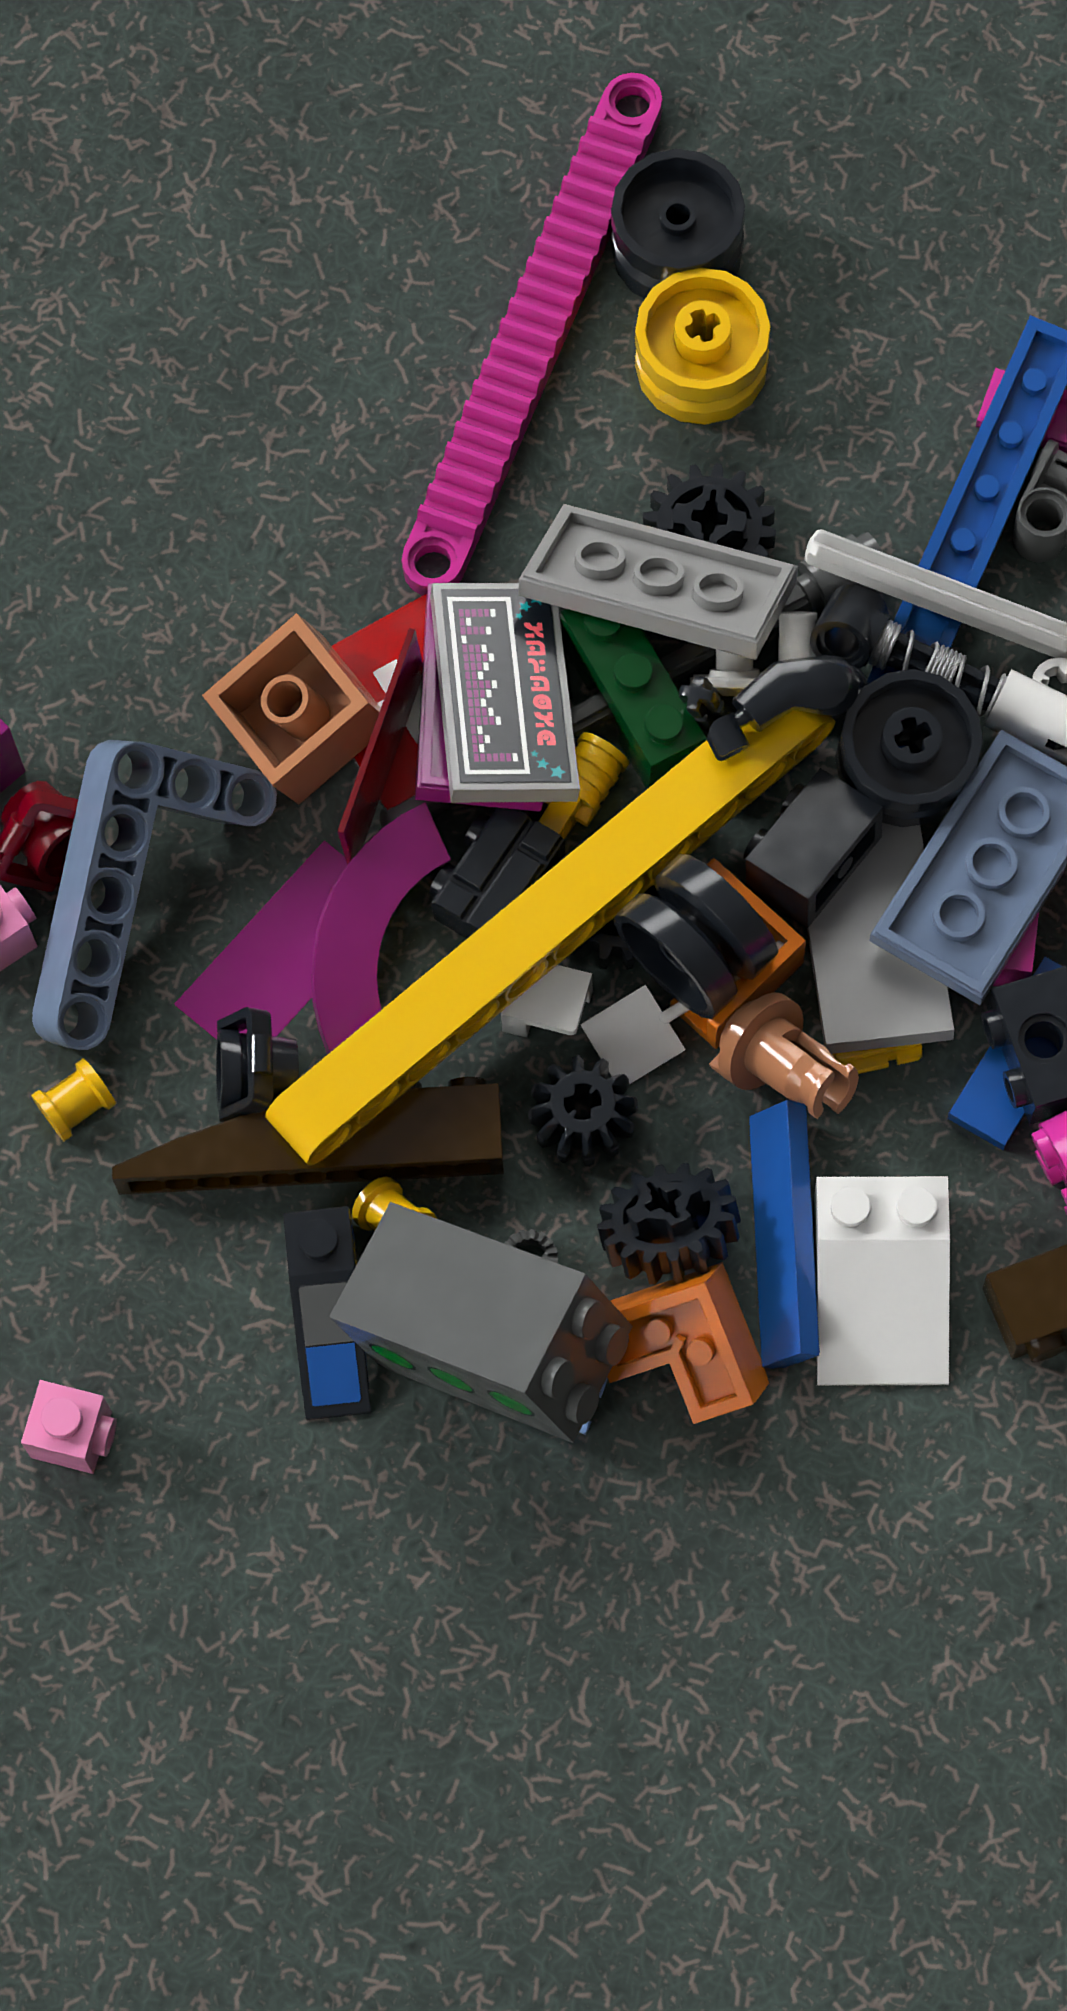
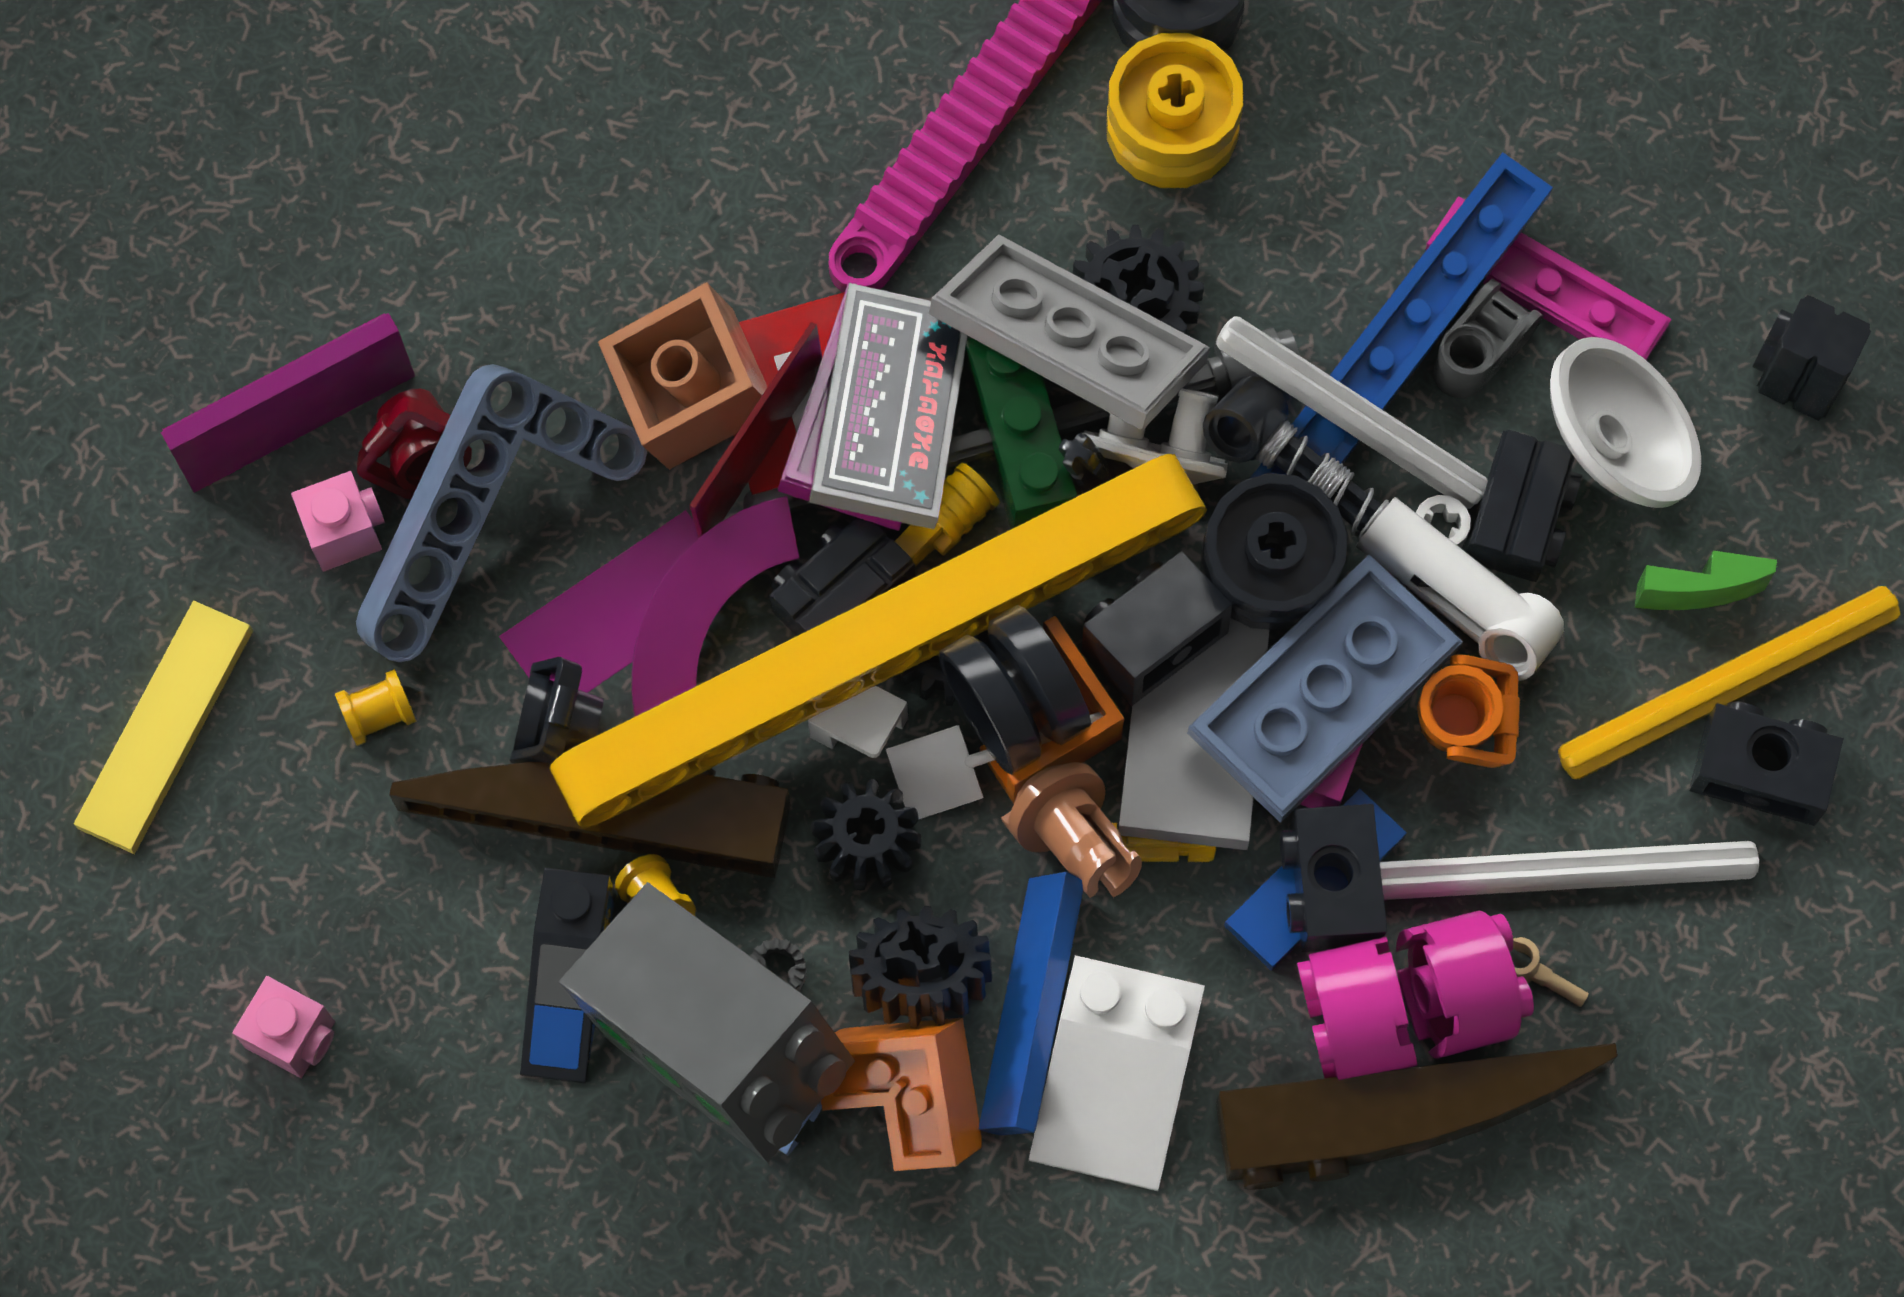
camera: 10 degrees right, 0 degrees up
(803, 684) = (1184, 466): black arm -> none

